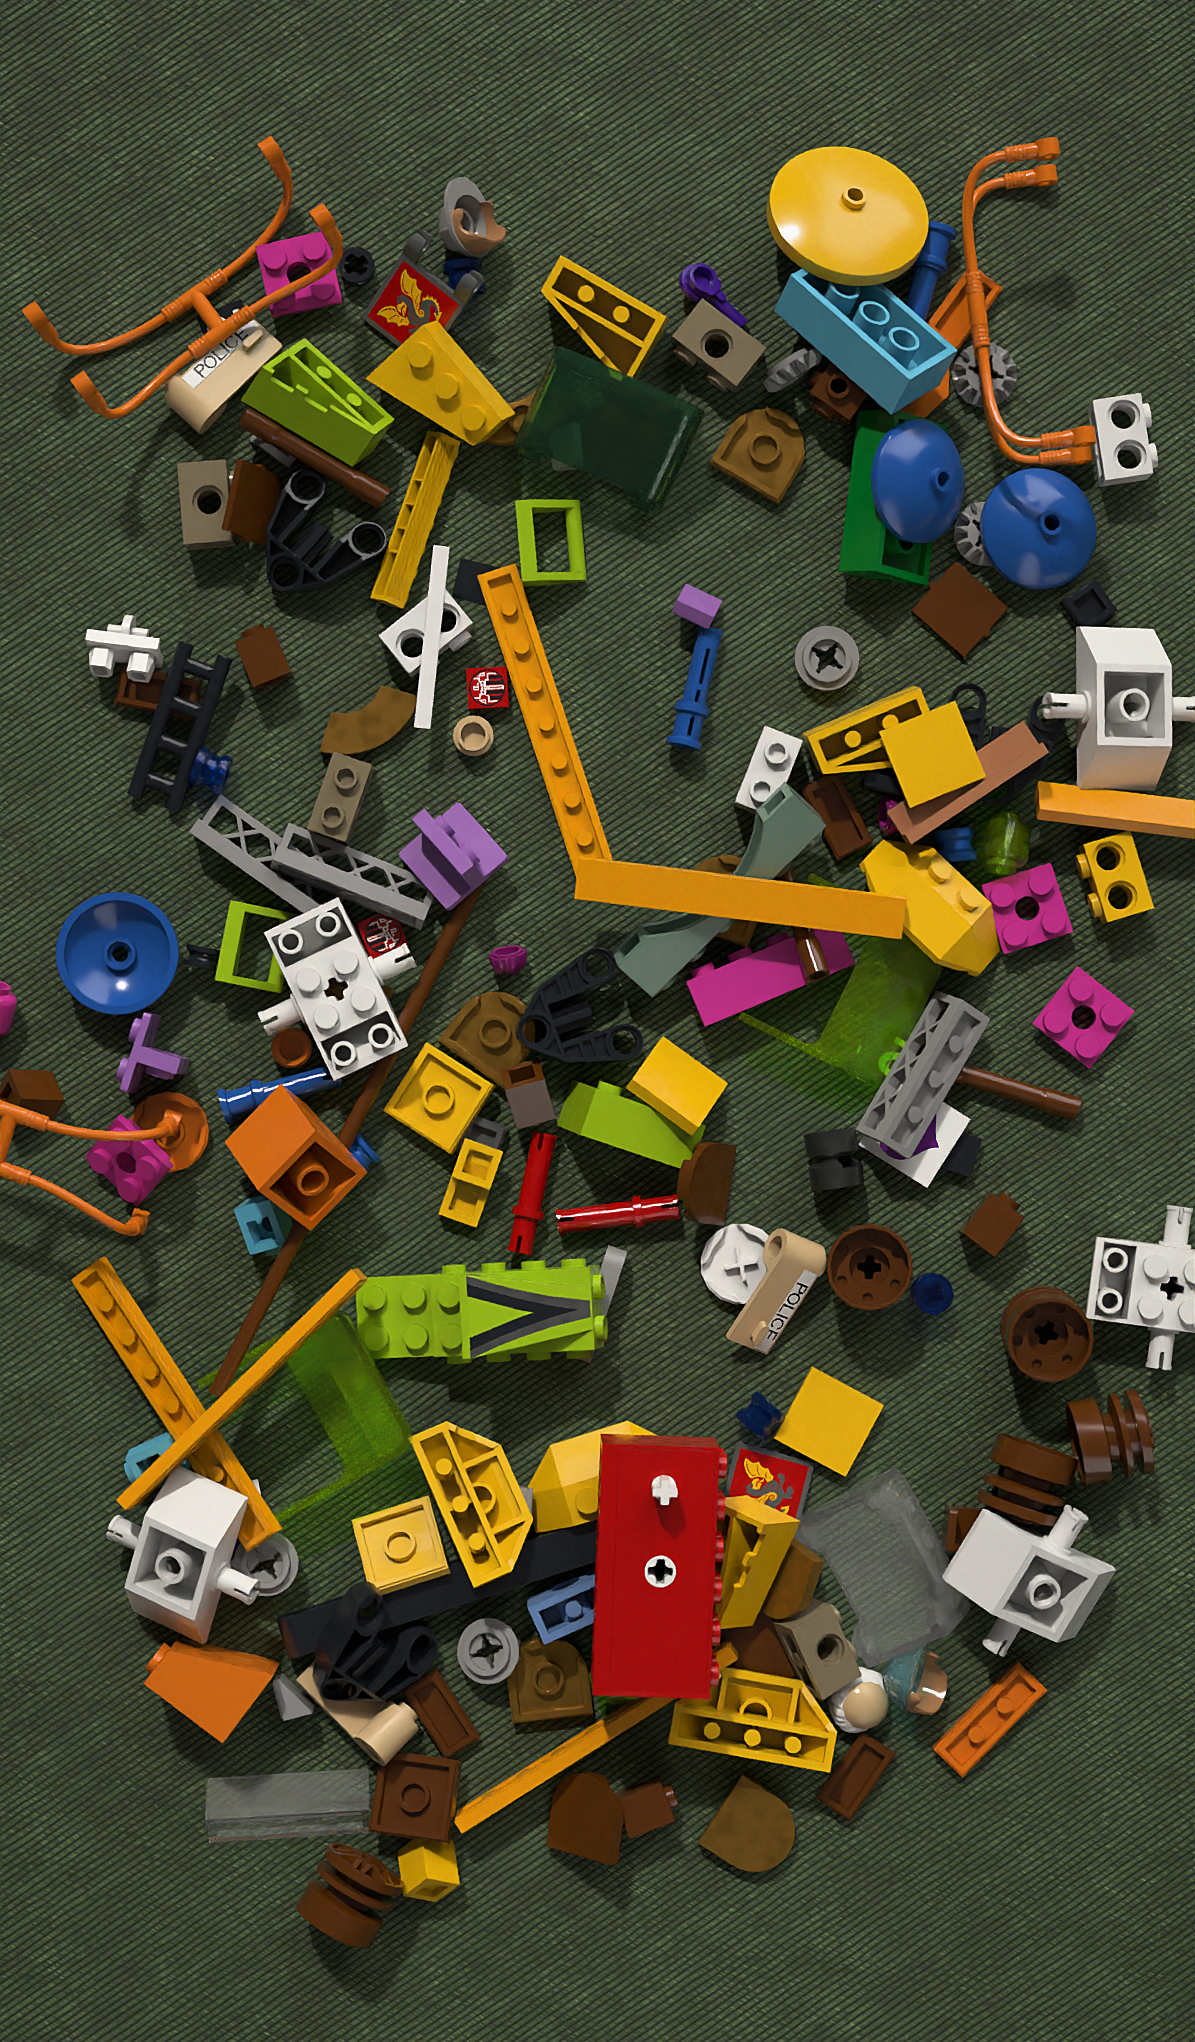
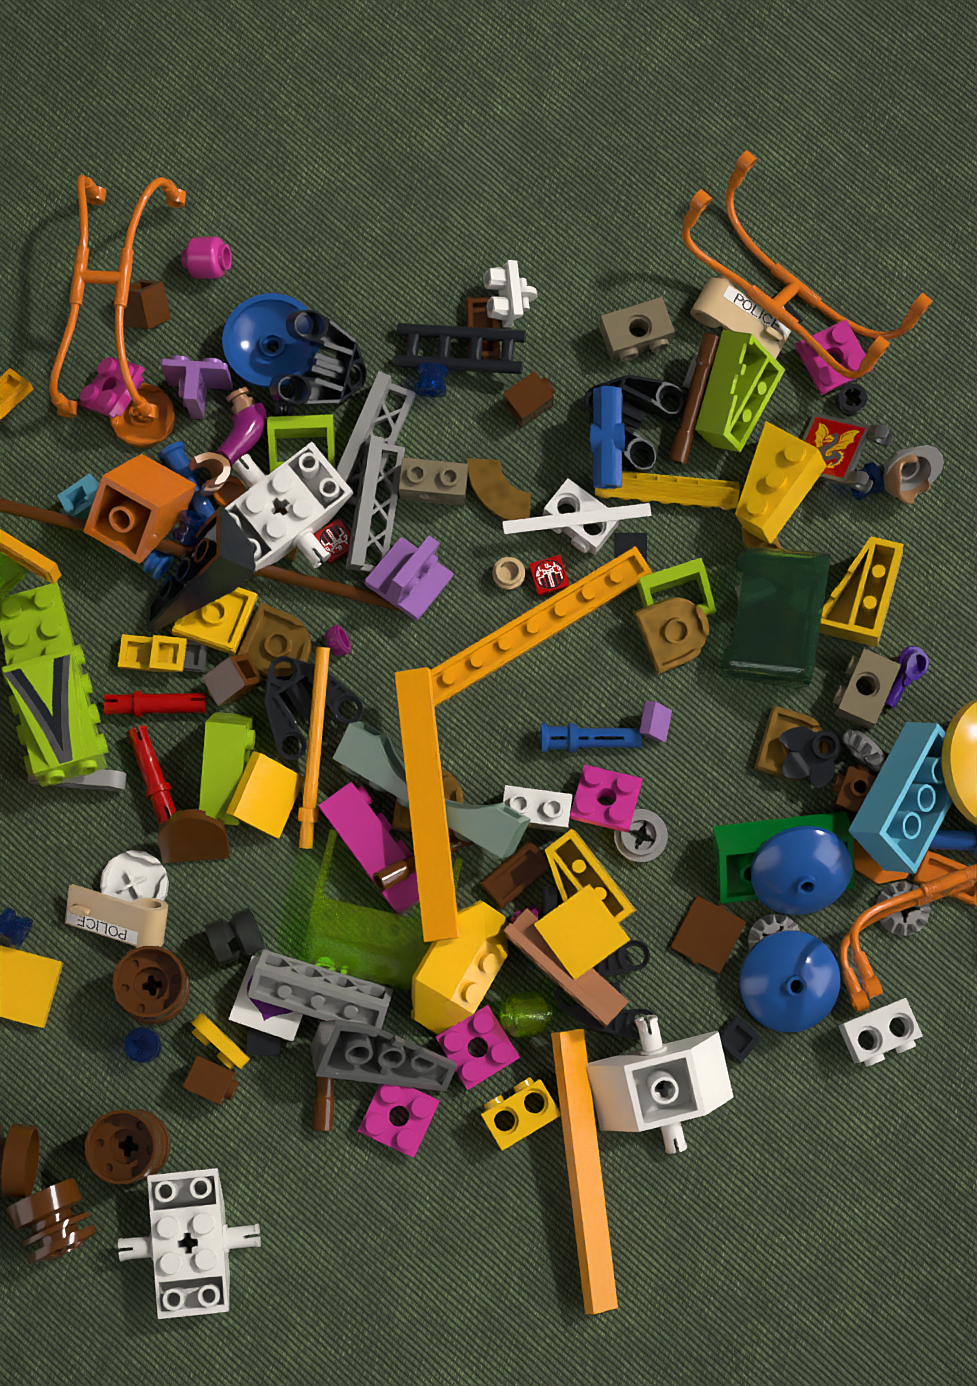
camera: 80 degrees right, 10 degrees down
(199, 914) = (333, 339): none -> black connector
(222, 1008) = (247, 429): none -> piece
(251, 502) = (648, 358): reddish brown piece -> none
(332, 1101) = (189, 526): none -> clear blue wheel
(343, 574) = (607, 437): none -> blue piece
(395, 1090) = (205, 574): none -> black wedge
(593, 558) = (672, 631): none -> pearl gold tile
(705, 1040) = (309, 813): none -> light orange bar
(765, 667) = (598, 783): none -> dark pink piece
(784, 440) = (805, 756): none -> black plate
(956, 844) = (515, 975): blue wheel -> none
(964, 1195) = (229, 1052): none -> yellow plate
(1014, 1029) = (375, 1056): none -> dark grey wedge

